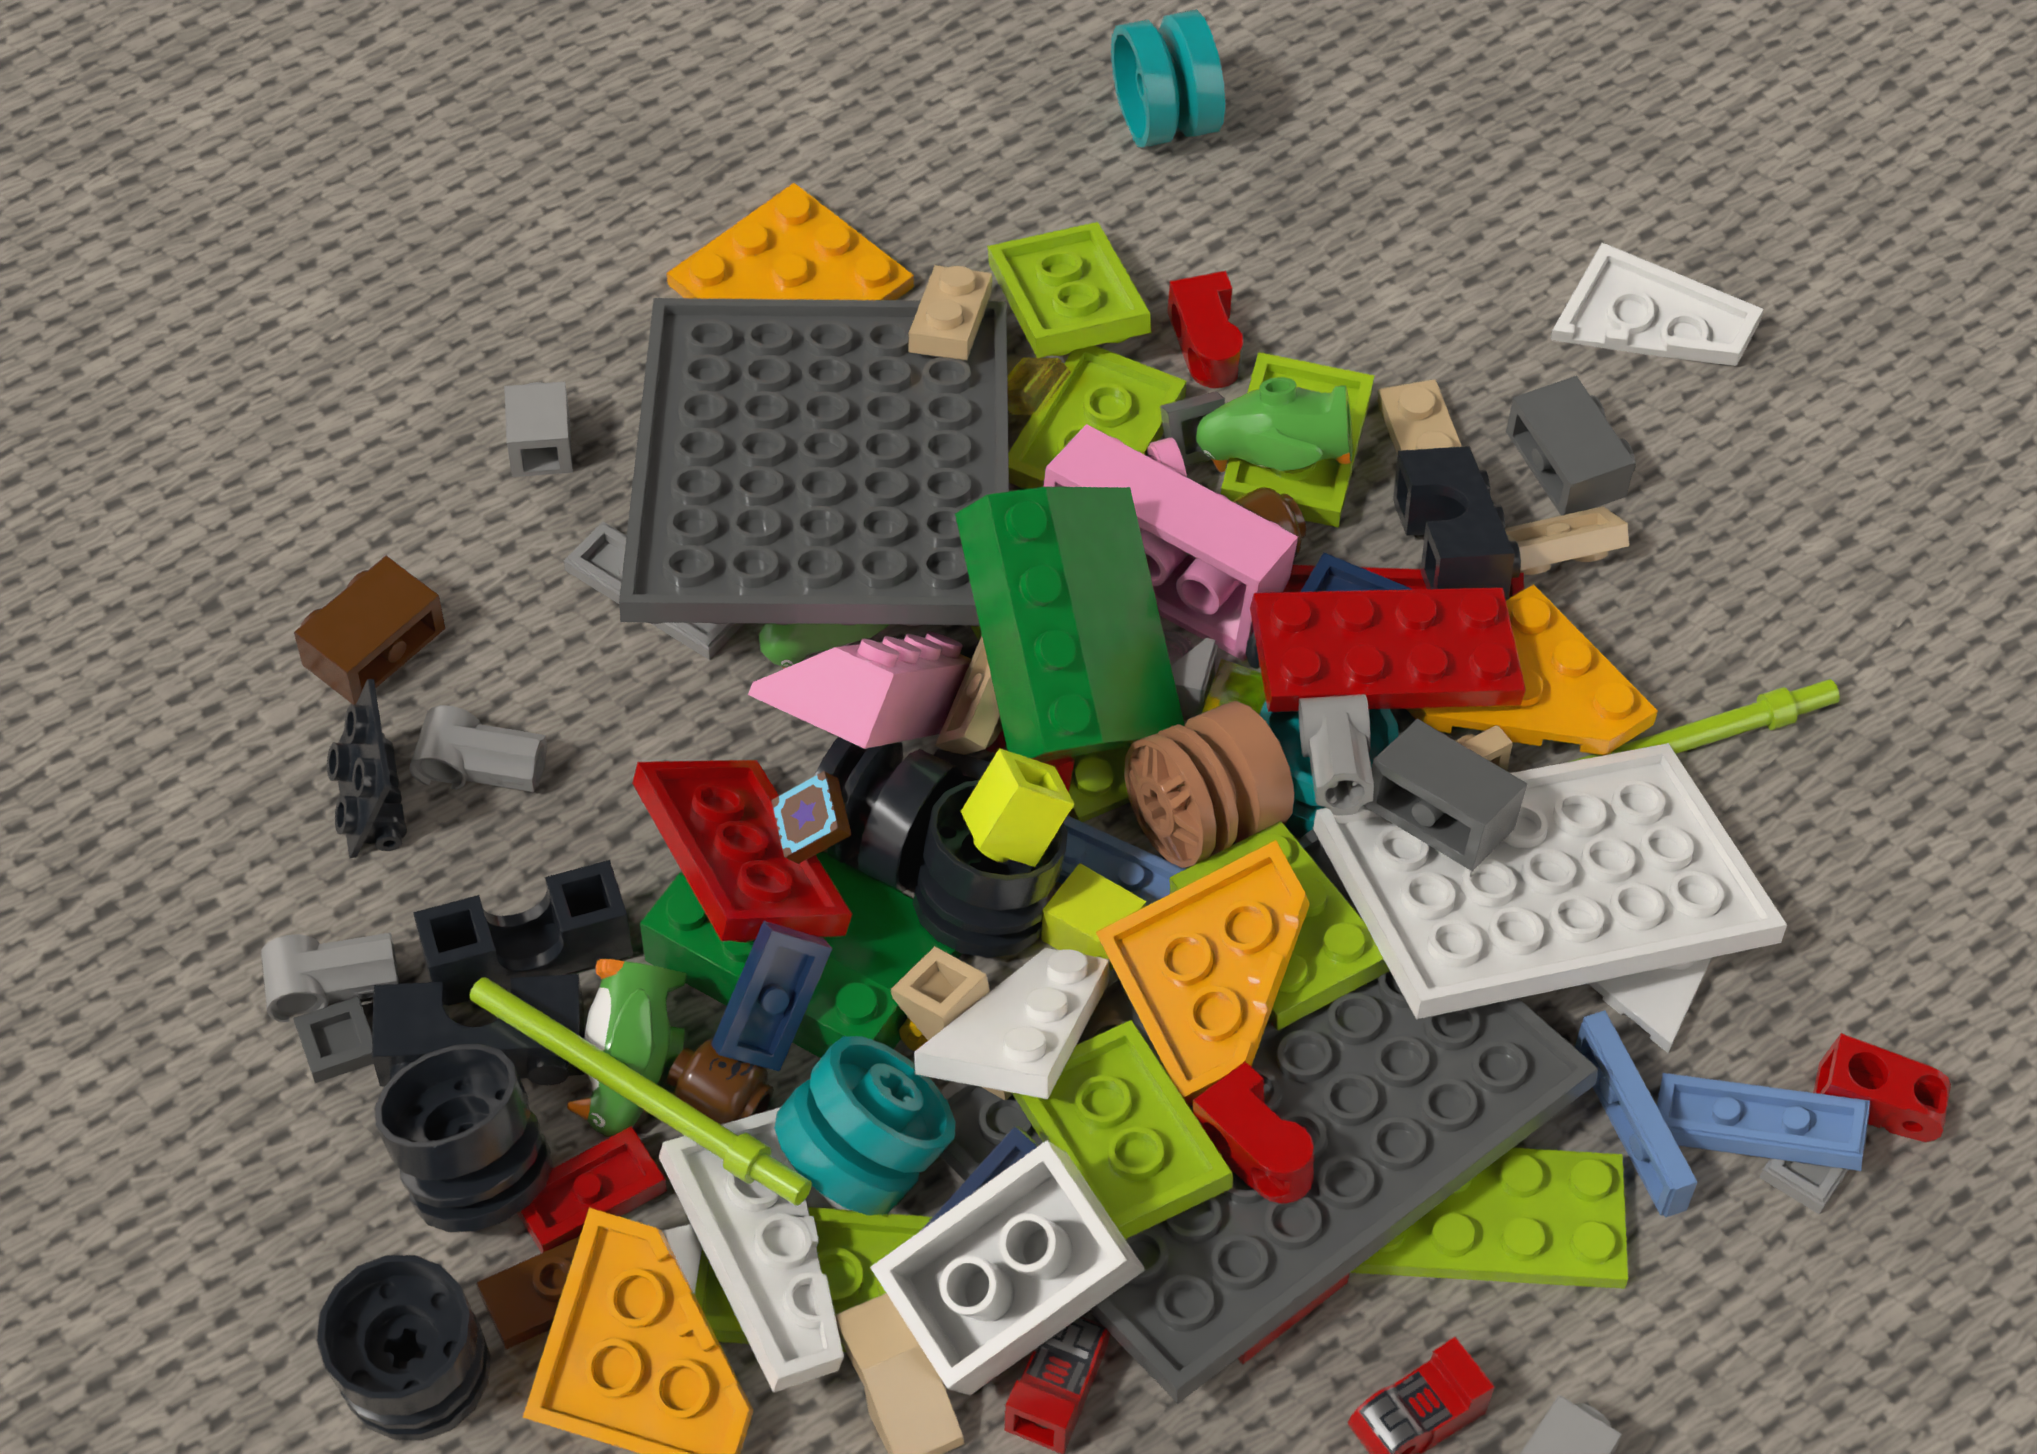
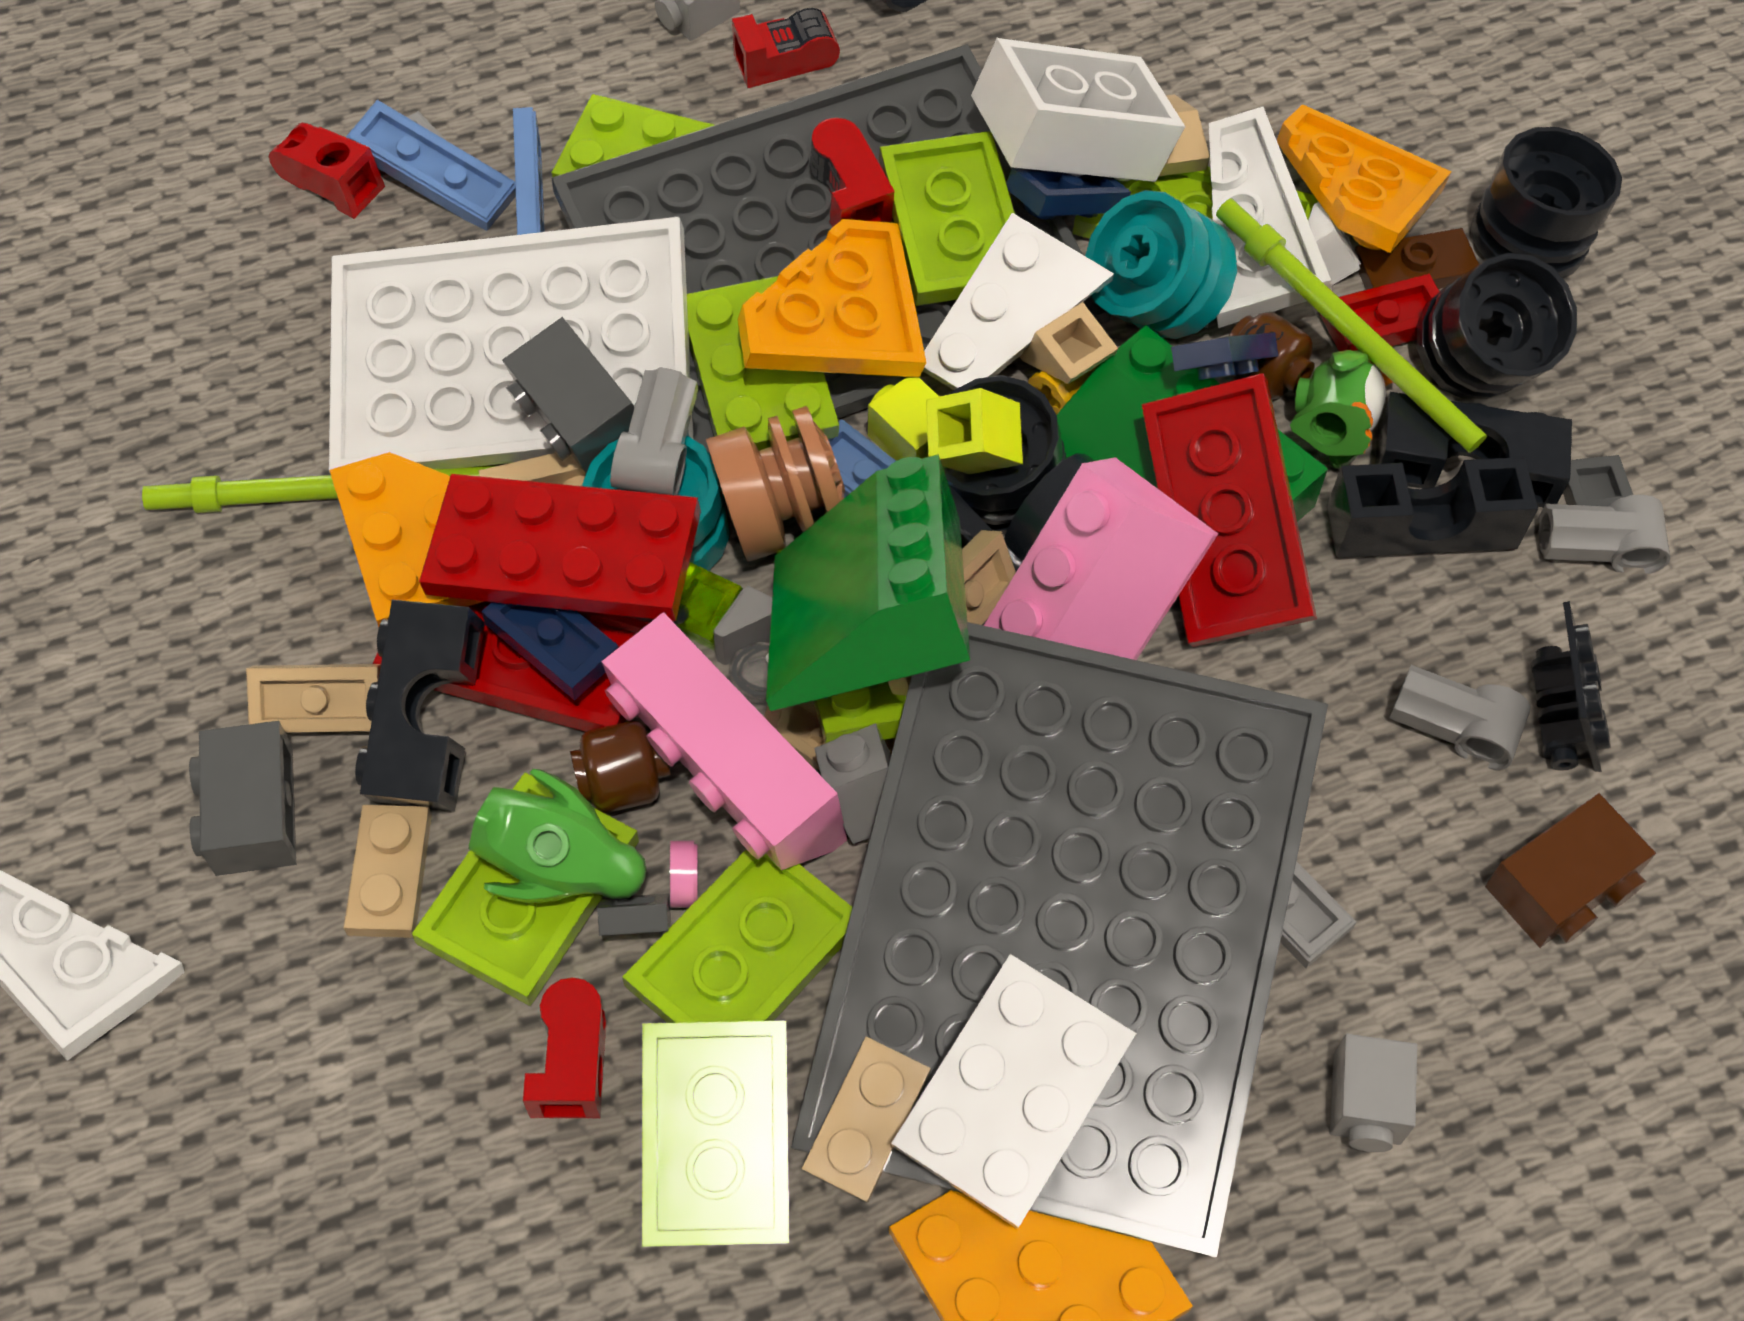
camera: 165 degrees left, 5 degrees up
(811, 817) = (1167, 472): reddish brown tile -> none
(835, 321) = (1013, 1090): none -> white brick
(1033, 384) = (803, 1006): clear yellow tile -> none

